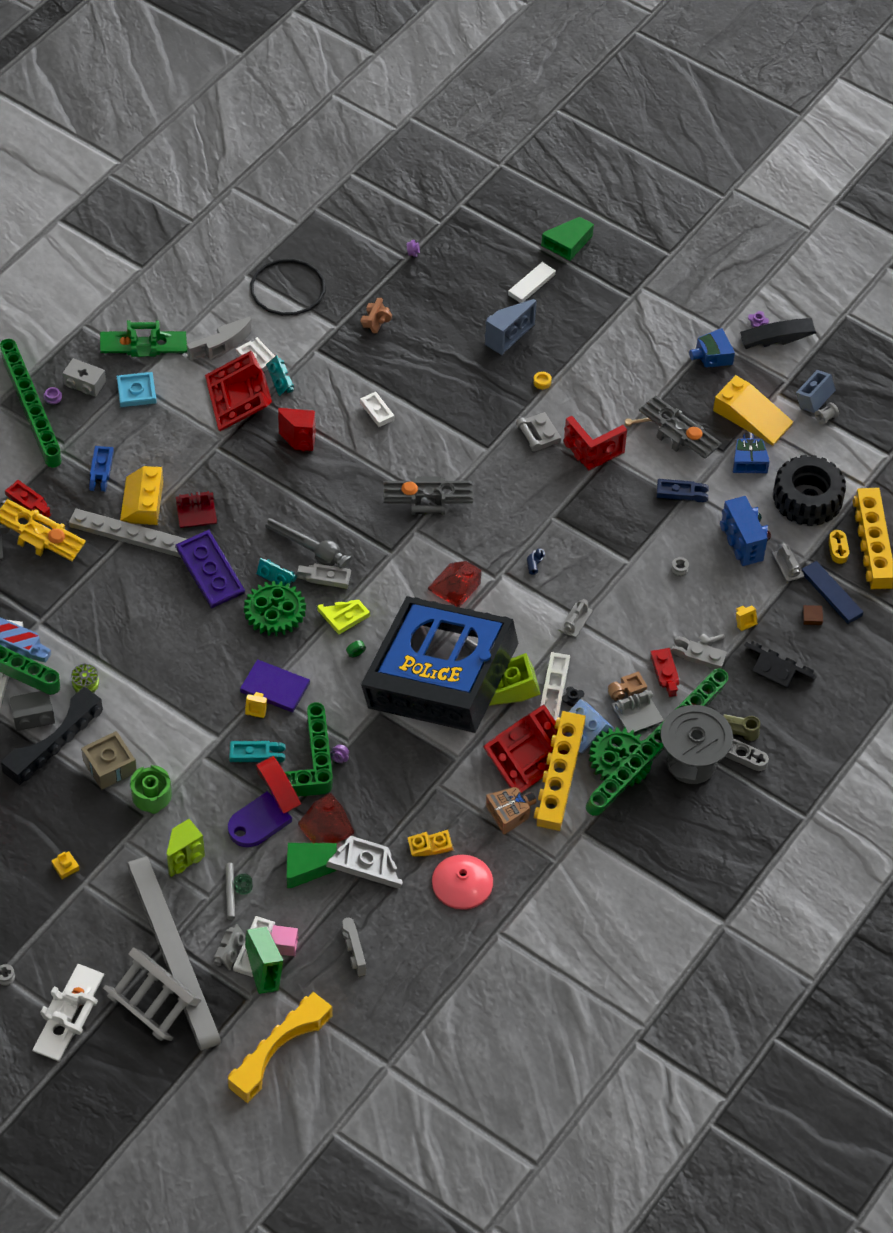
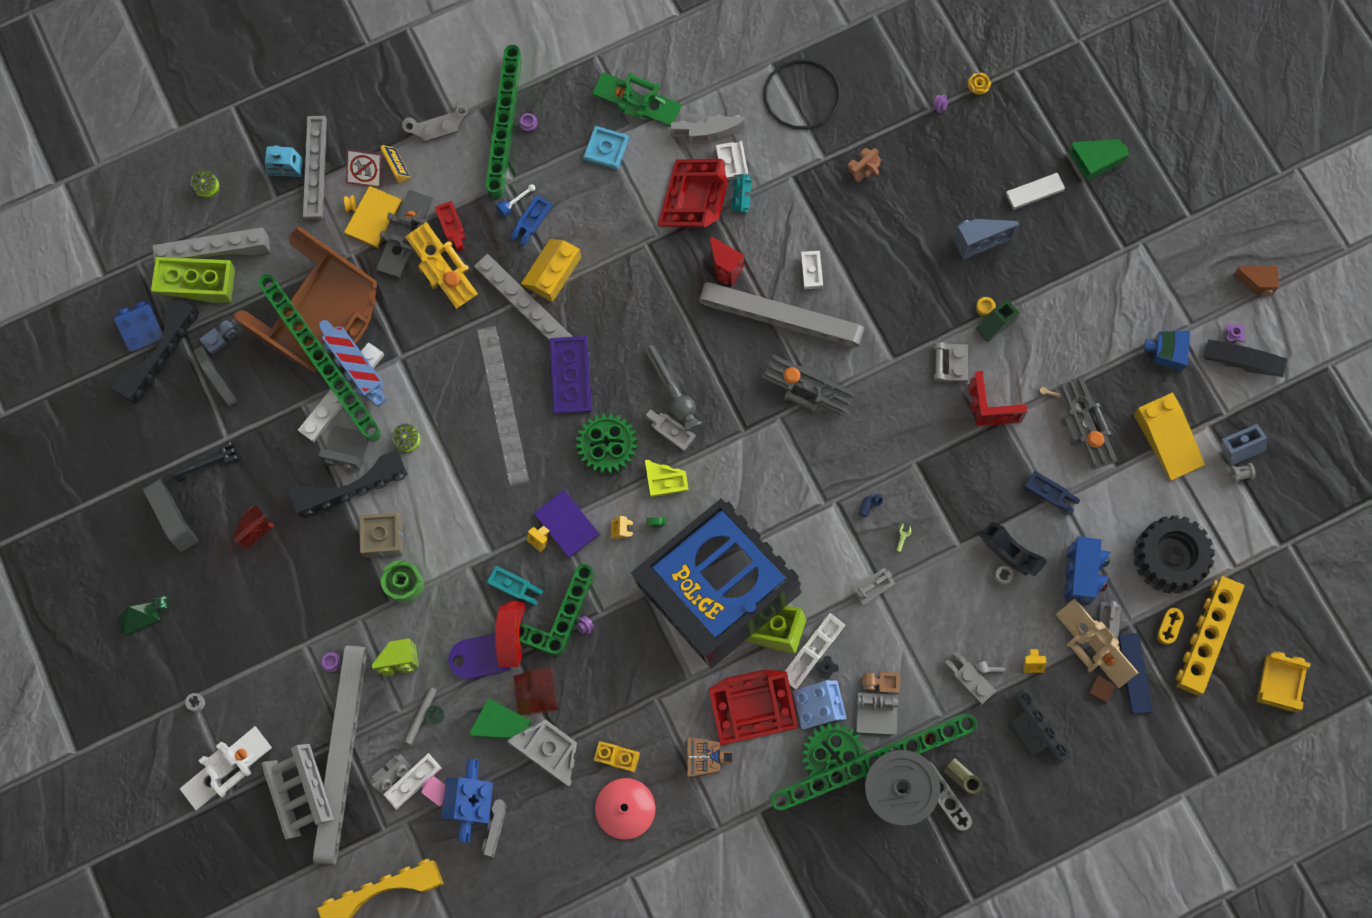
camera: 35 degrees right, 20 degrees up
(65, 864) = (297, 618): yellow tile -> none
(70, 468) = (505, 207): none -> hinge
(84, 377) = (564, 115): light grey brick -> none
(119, 884) = (331, 662): none -> medium lavender plate
(161, 617) = (503, 406): none -> clear beam
(196, 509) = (592, 304): dark red hinge -> none
(264, 959) = (407, 804): green slope -> none
(274, 573) = (623, 398): teal hinge -> none
(317, 929) = (467, 800): none -> blue brick
(326, 667) = (619, 528): none -> yellow tile
(370, 451) = (781, 314): none -> light grey beam
(437, 223) = (979, 78): none -> yellow plate
(457, 582) = (784, 493): clear red slope -> none
(559, 382) = (997, 320): none -> dark green slope
(573, 724) = (739, 789): yellow brick -> none
(577, 573) = (903, 536): none -> yellowish green hand
(665, 670) = (928, 681): red hinge -> none
(673, 545) = (1010, 551): none -> black arch
(750, 455) = (1139, 485): blue torso -> none
(752, 274) = (1259, 279): none -> dark orange slope
(793, 575) = (1100, 639): none -> tan piece

